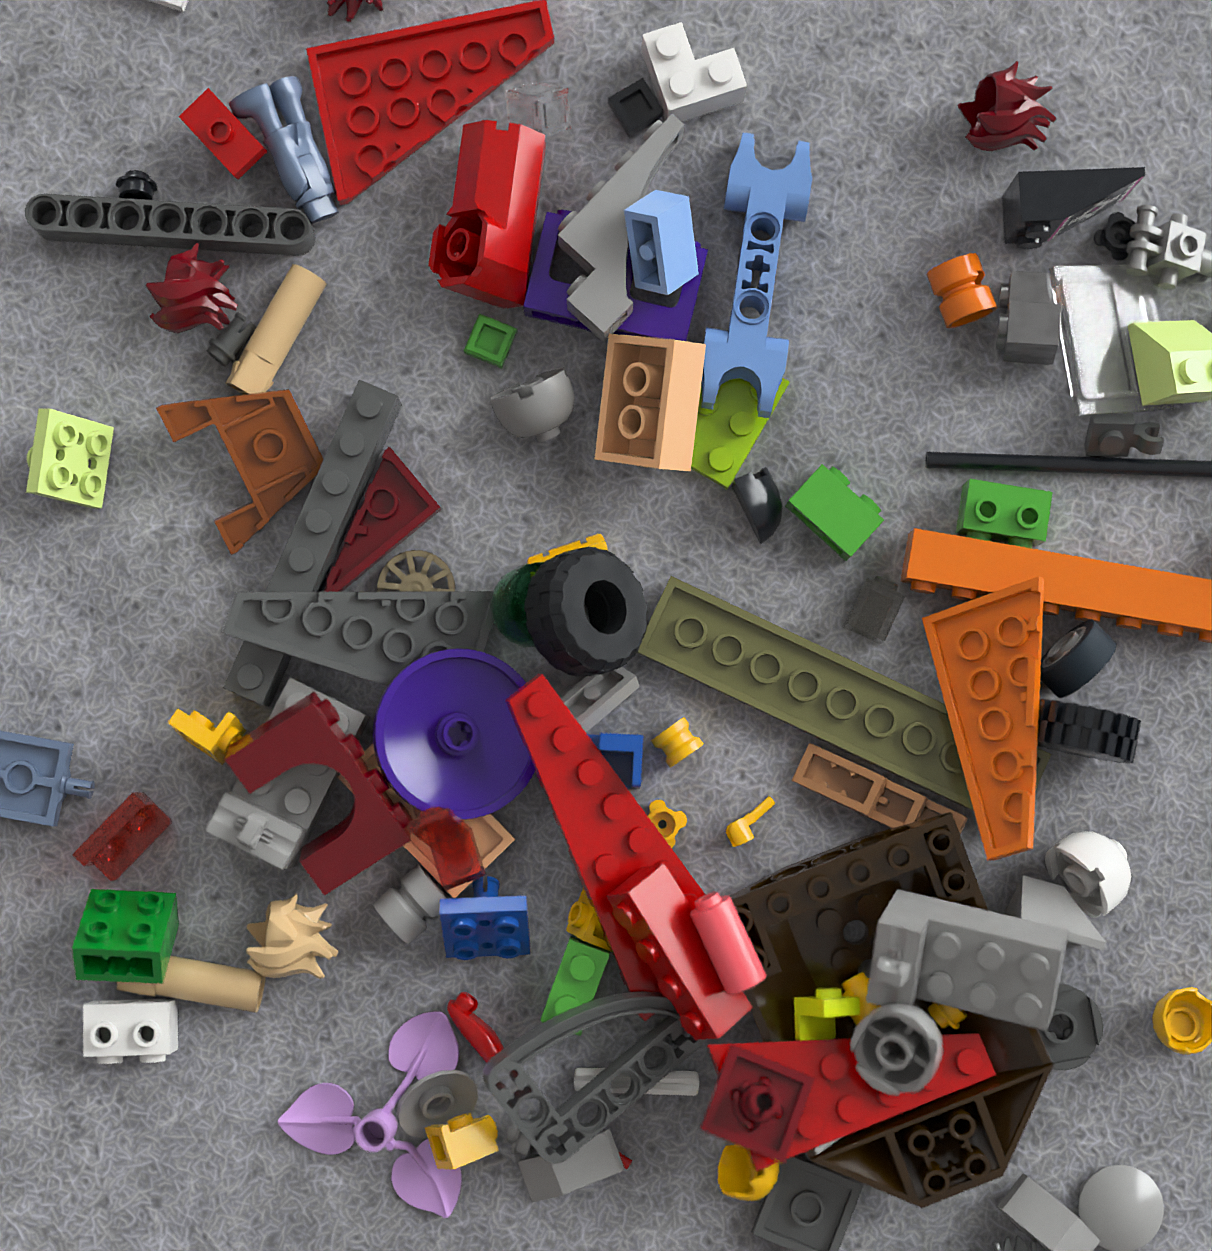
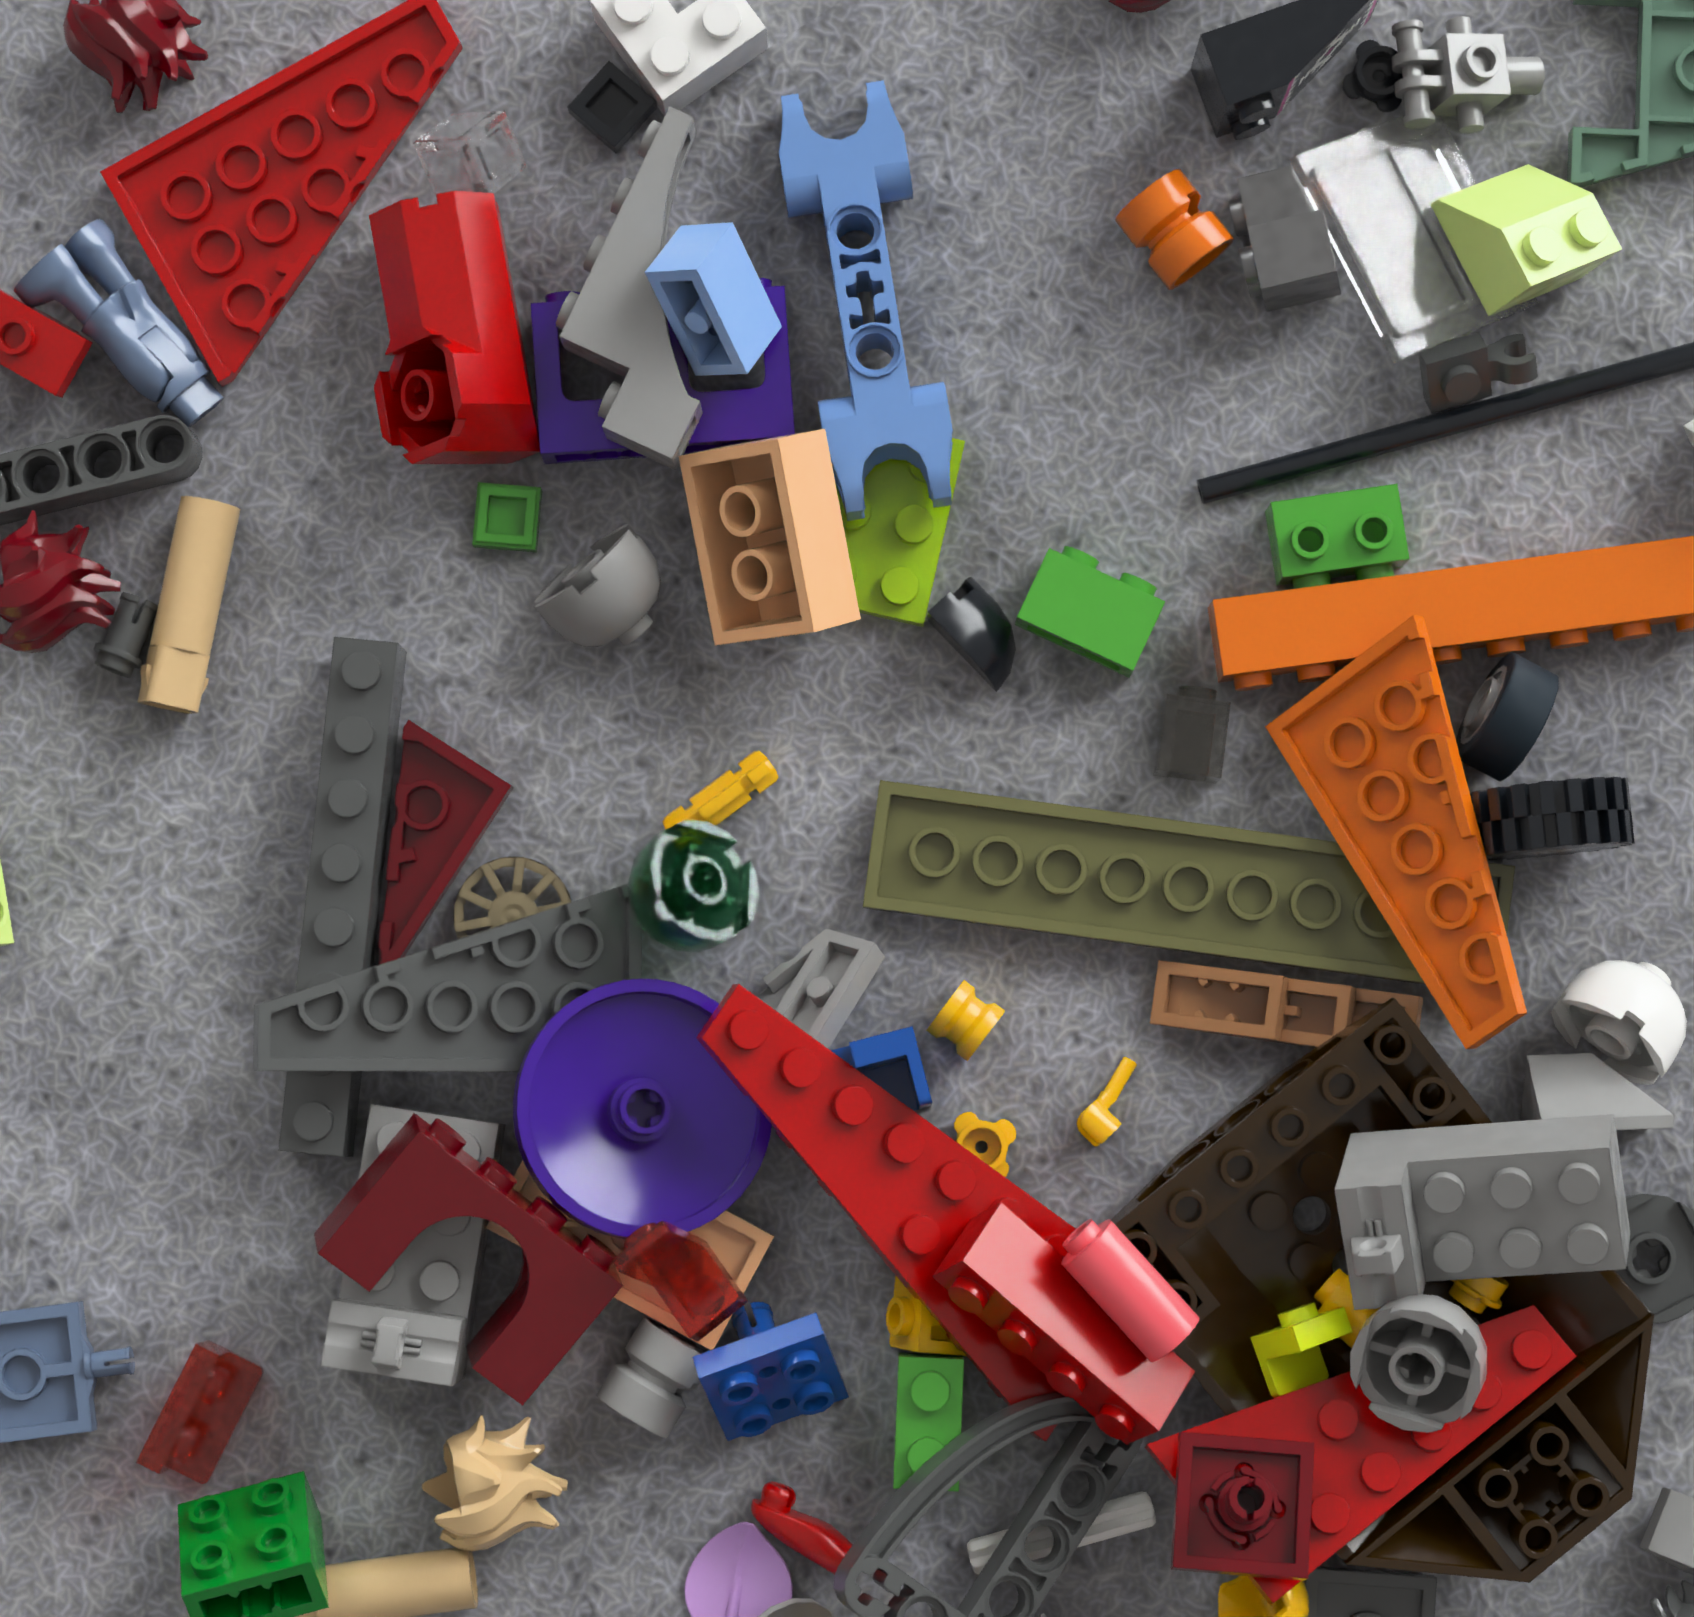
camera: 10 degrees left, 0 degrees up
(204, 736) = (273, 1230): yellow bracket -> none
(266, 445) = (227, 774): dark orange wing -> none
(559, 619) = (735, 892): black tyre -> none

